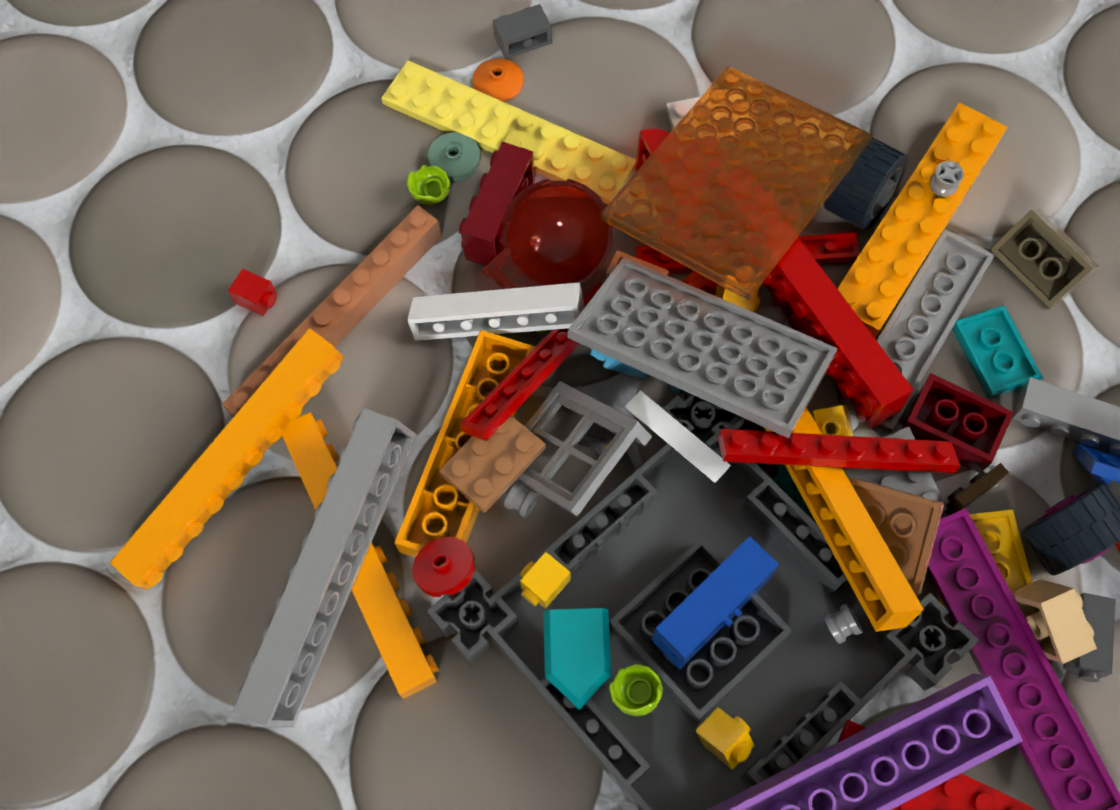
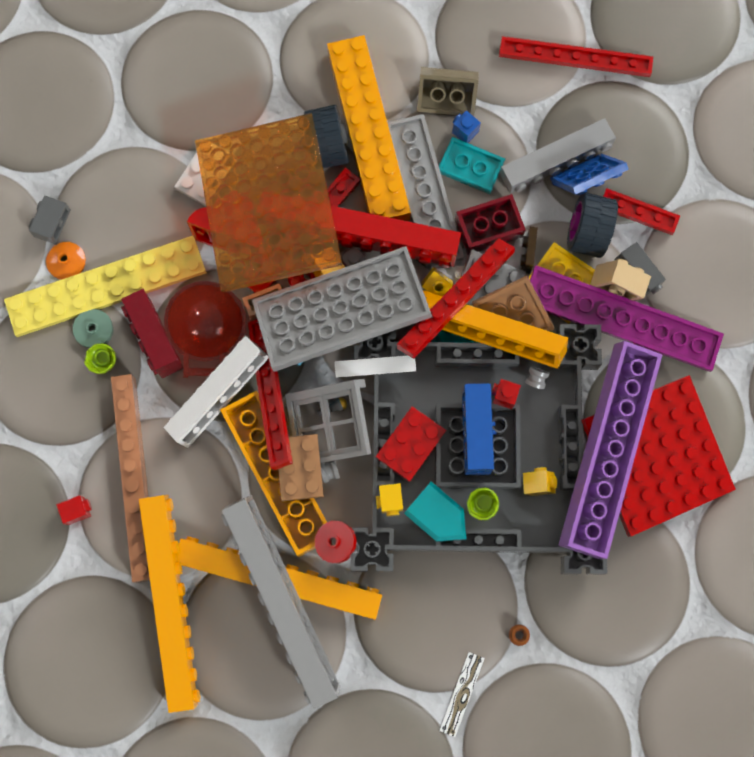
camera: 50 degrees left, 10 degrees up
(628, 549) = (410, 444): none -> red plate
(787, 600) = (505, 393): none -> red brick
(945, 172) = (363, 93): light grey wheel -> none
(1030, 307) = (465, 127): none -> blue brick

